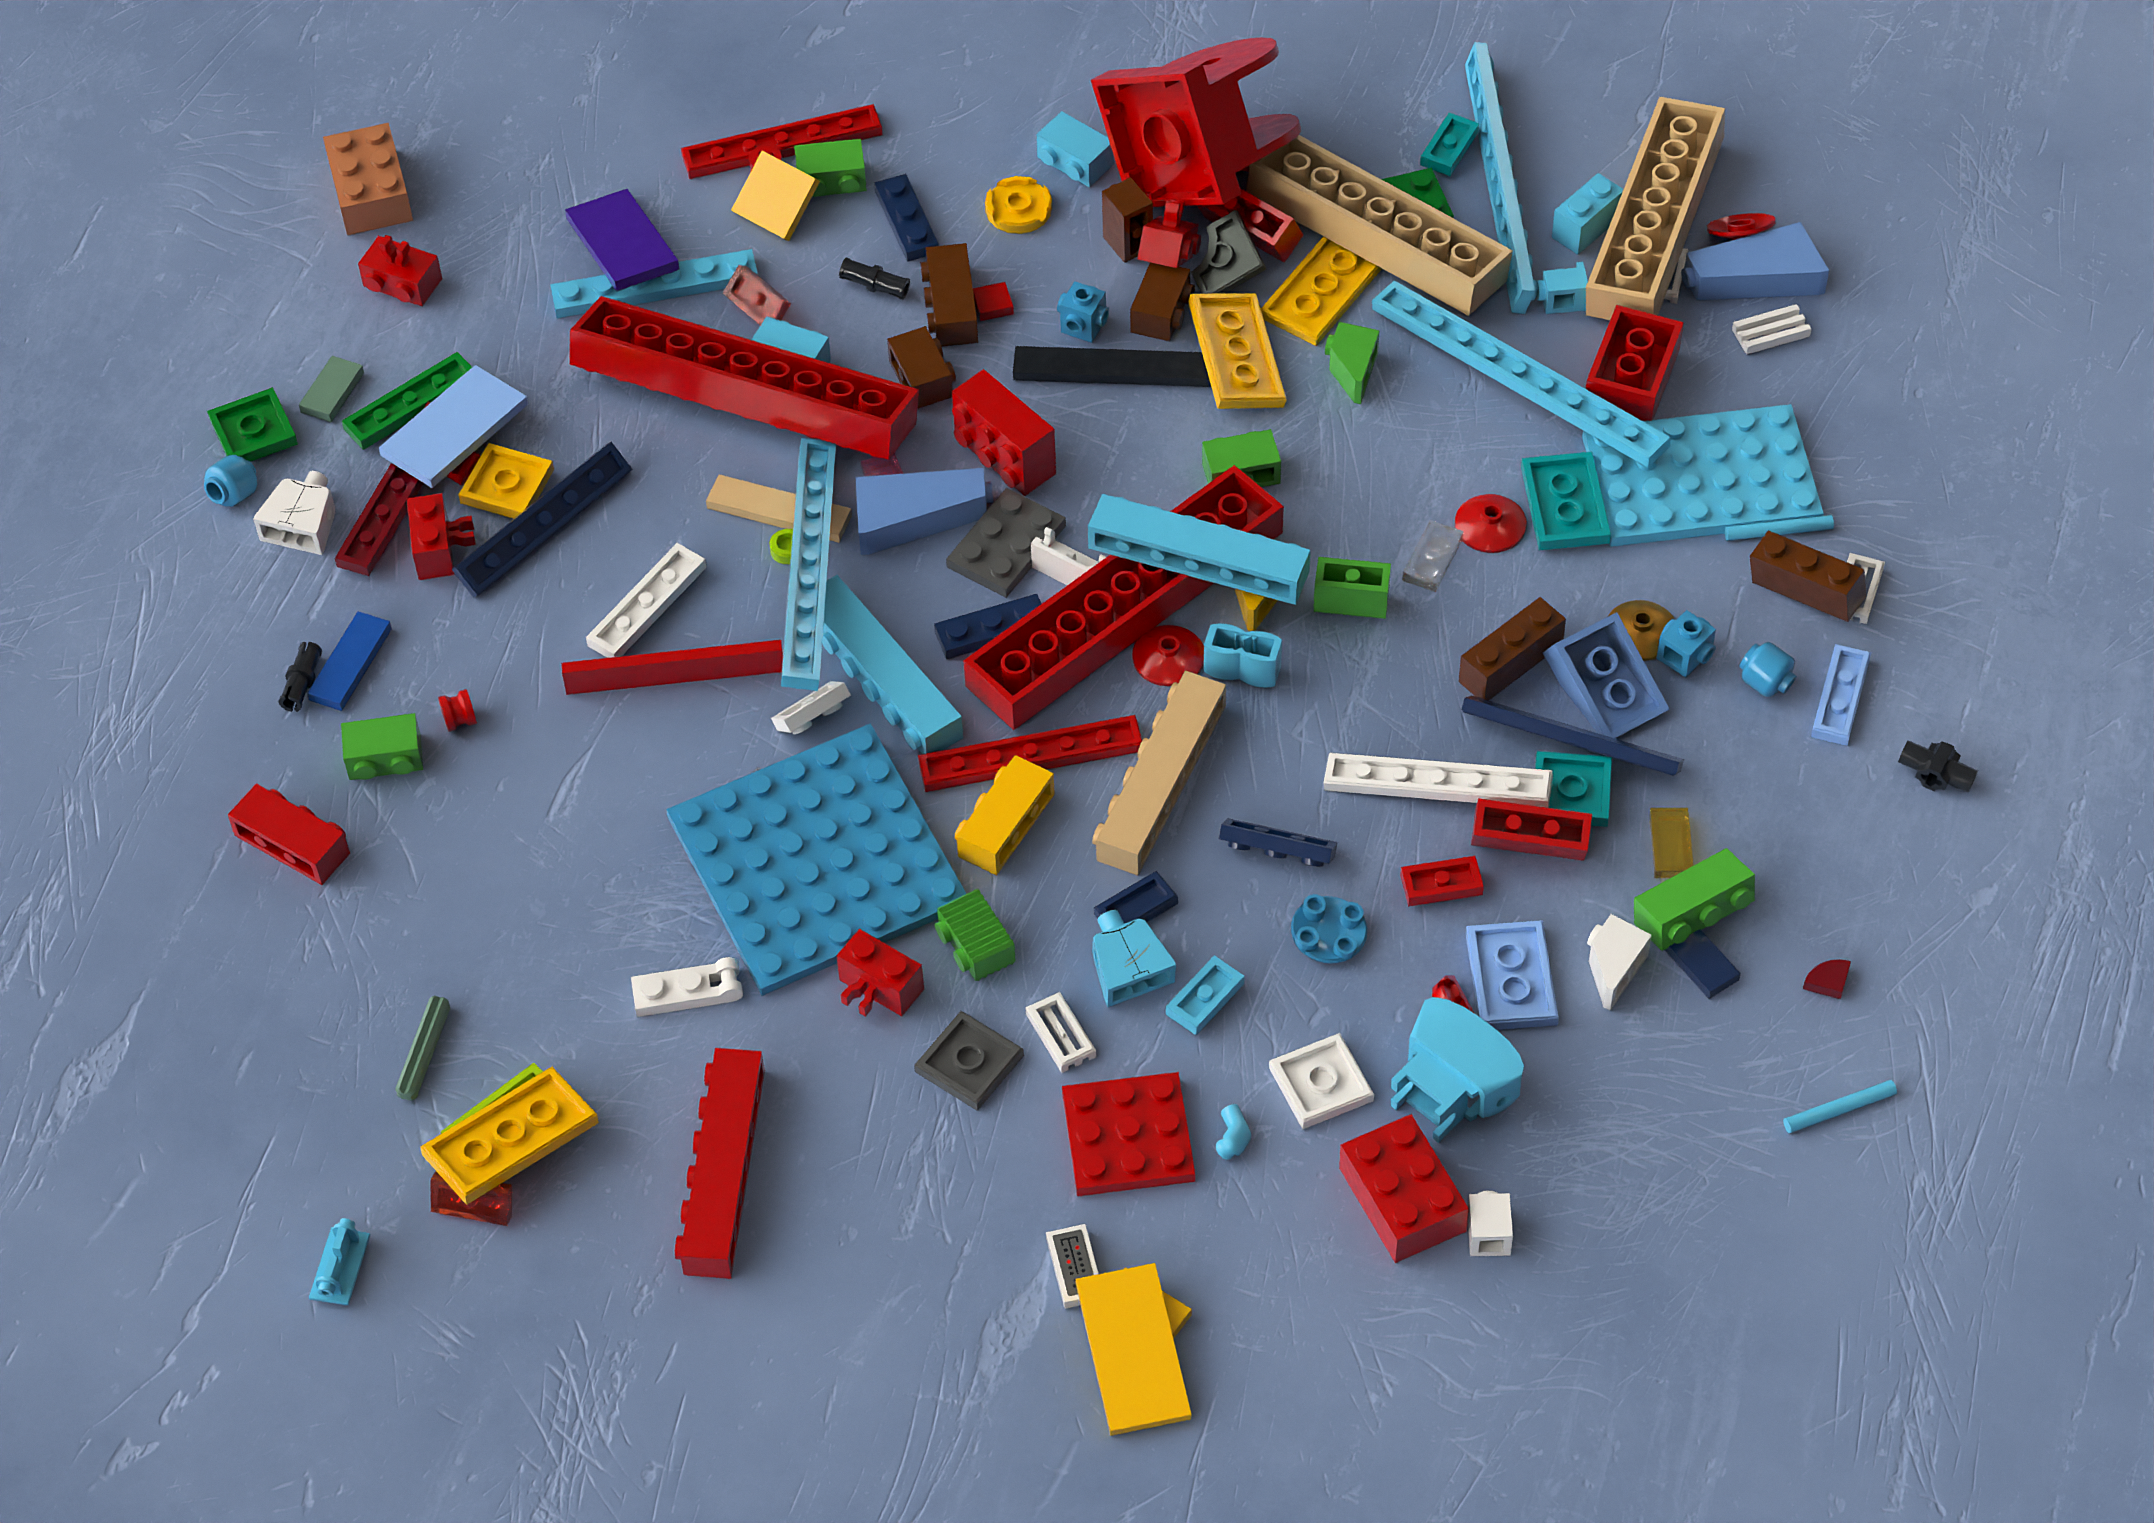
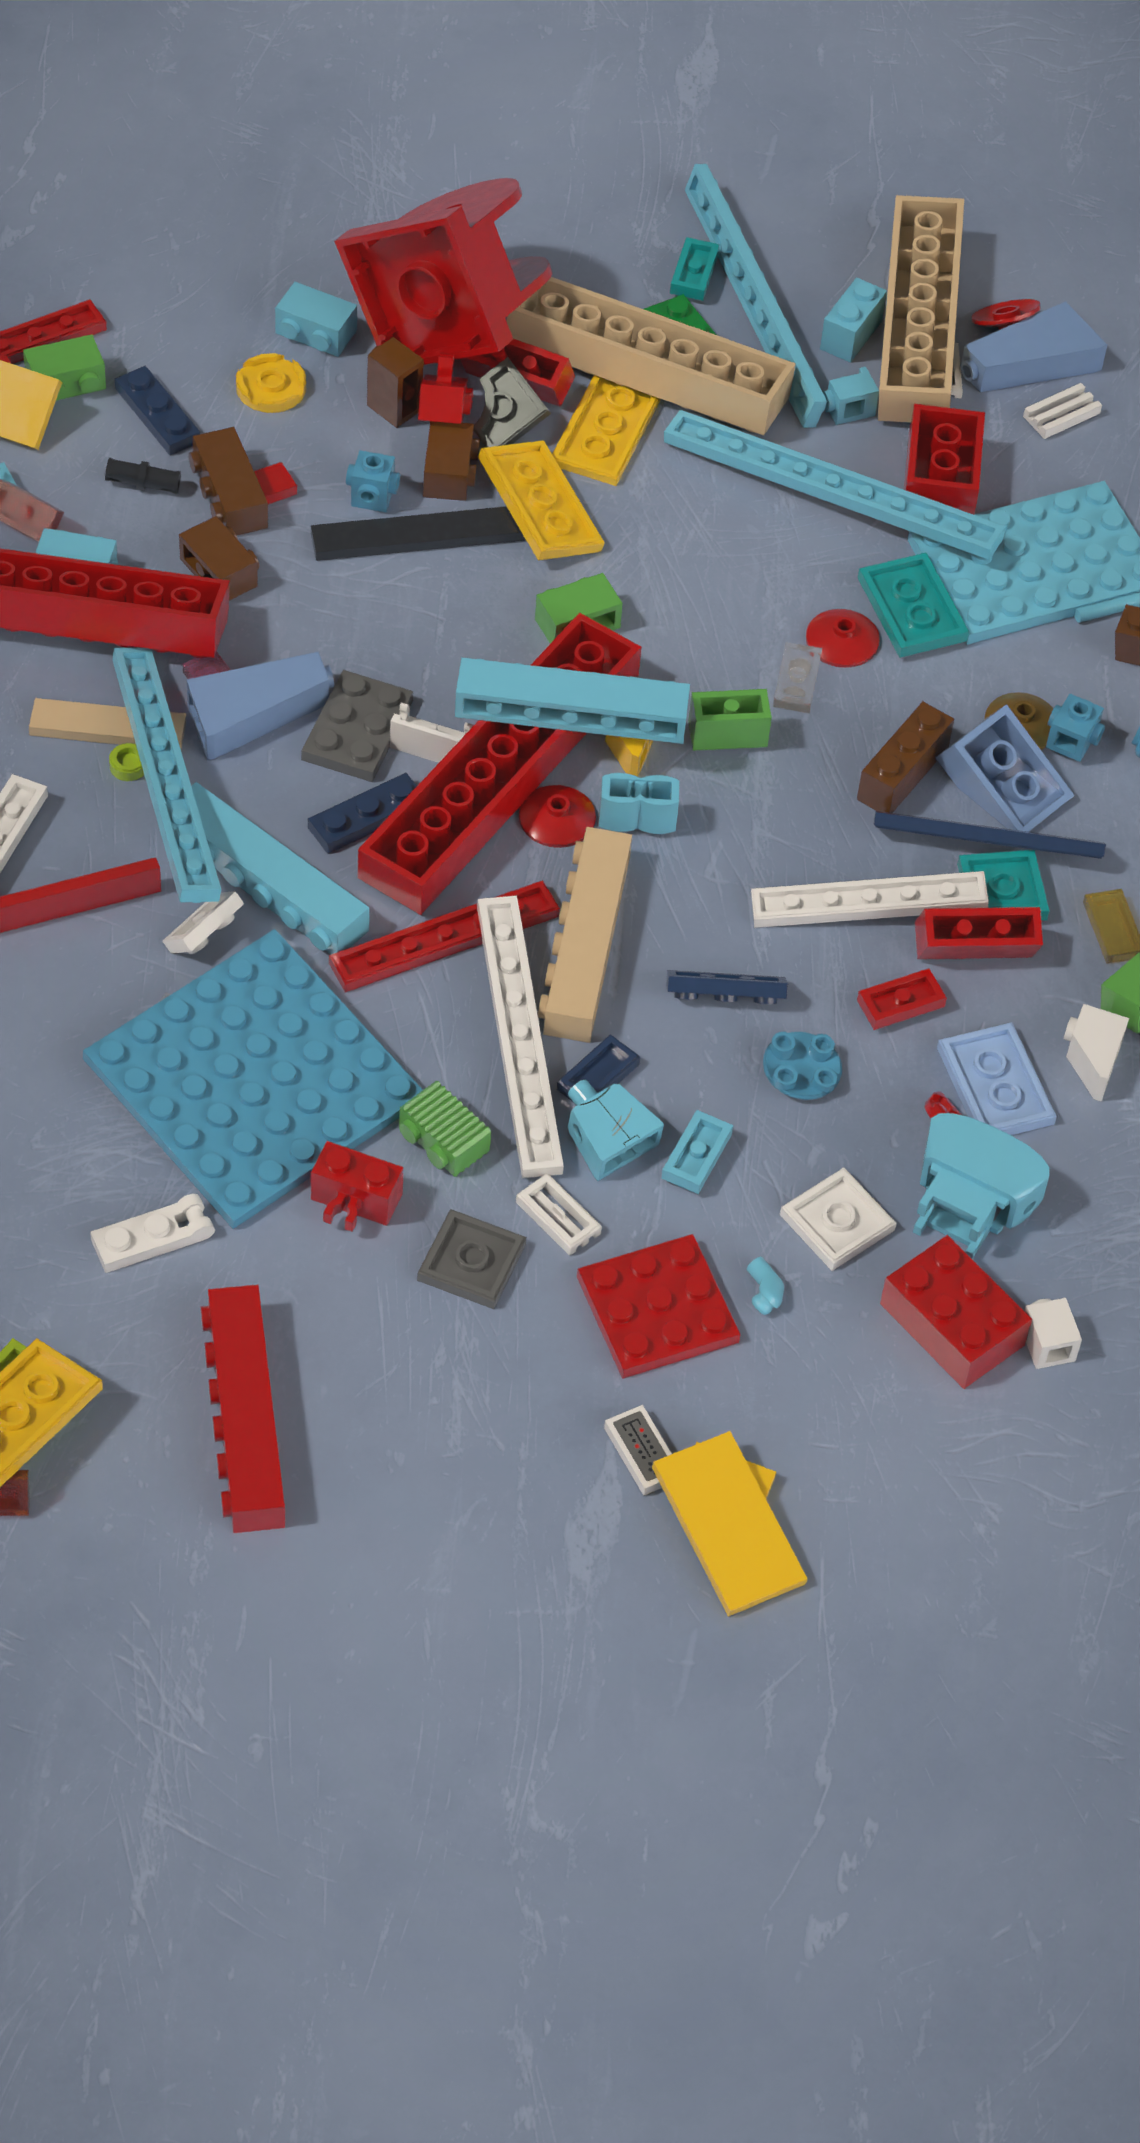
camera: 20 degrees left, 0 degrees up
(1004, 432) = (329, 612): red brick -> none
(1004, 814) = (438, 1001): yellow brick -> none
(1068, 860) = (520, 1037): none -> white plate
(1352, 357) = (659, 492): bright green slope -> none

